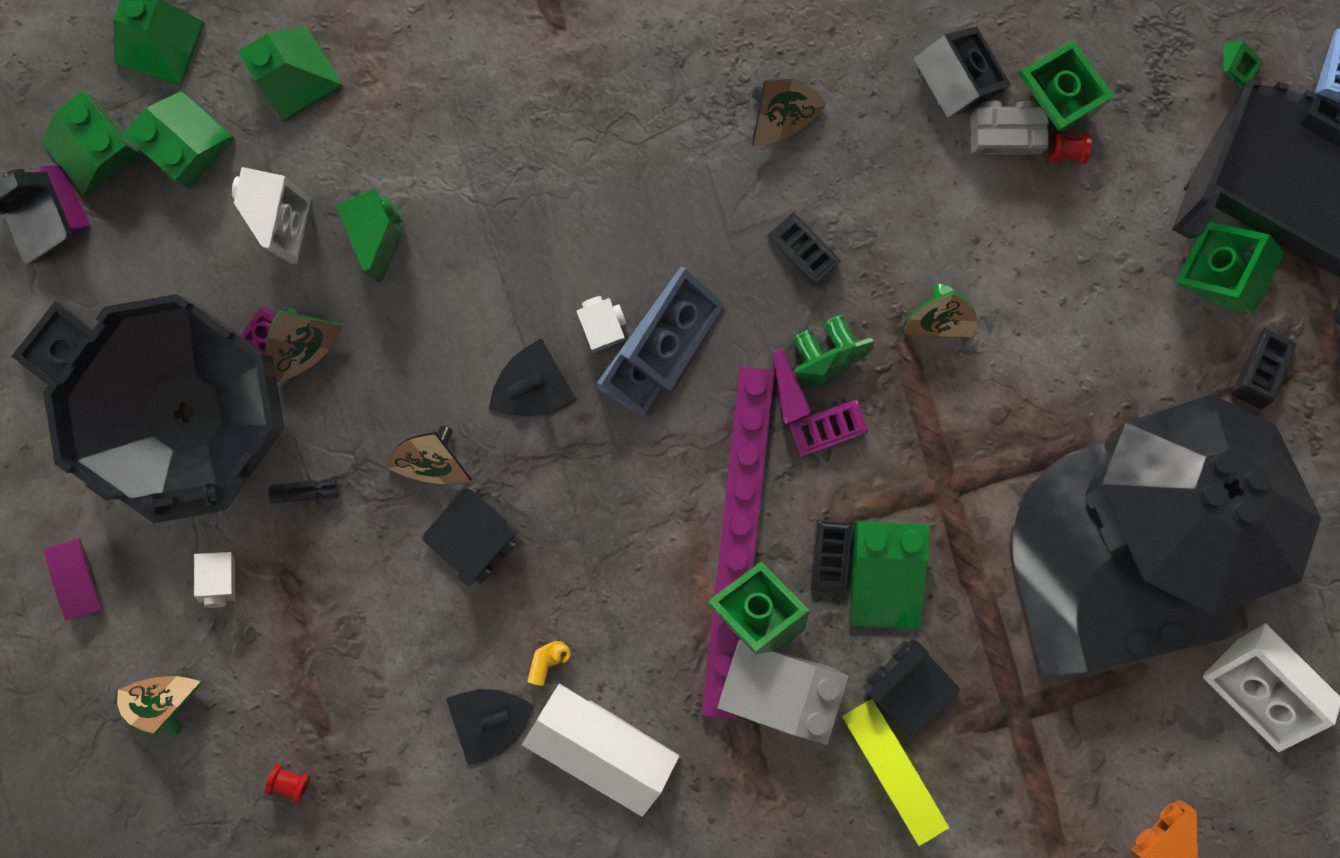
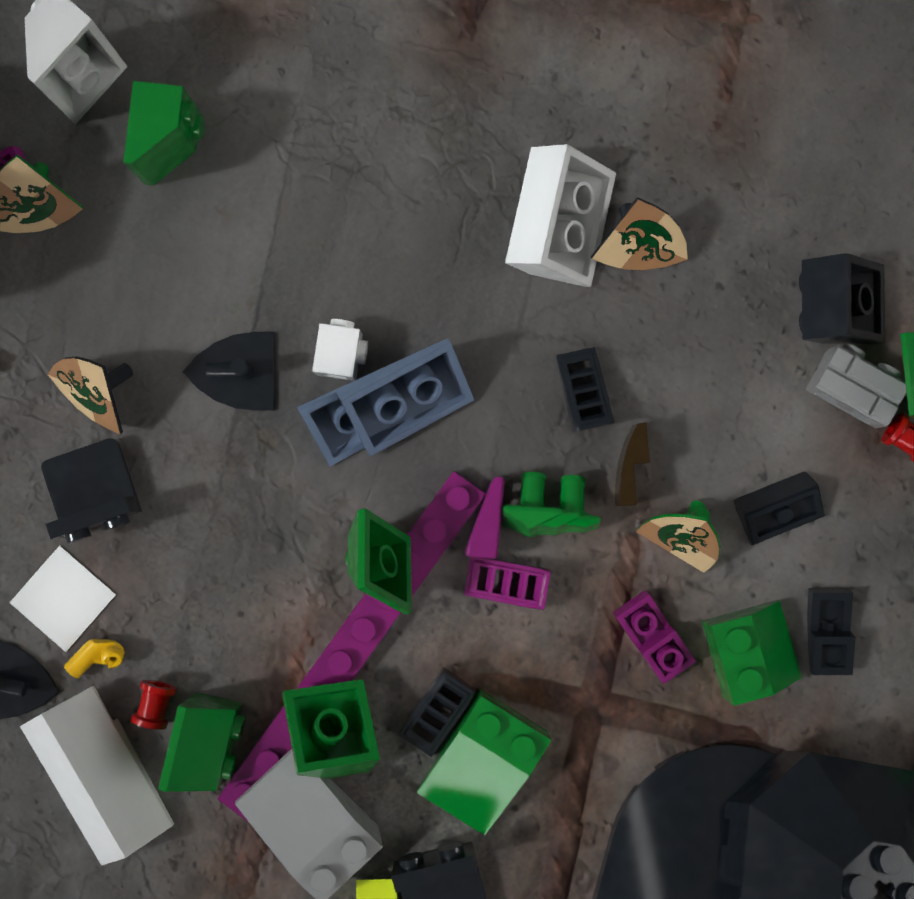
camera: 30 degrees right, 0 degrees up
(496, 633) = (62, 598): none -> white sticker
(613, 671) = (153, 704): none -> red bush
(669, 677) = (202, 744): none -> green slope
(711, 126) = (560, 215): none -> white slope
(723, 461) = (380, 560): none -> green slope
(868, 275) = (634, 452): none -> dark brown slope
(962, 406) = (654, 637): none -> magenta slope
(1002, 255) = (779, 507): none -> black slope
(1042, 375) = (752, 652): none -> green slope
(1092, 327) = (829, 631): none -> black slope

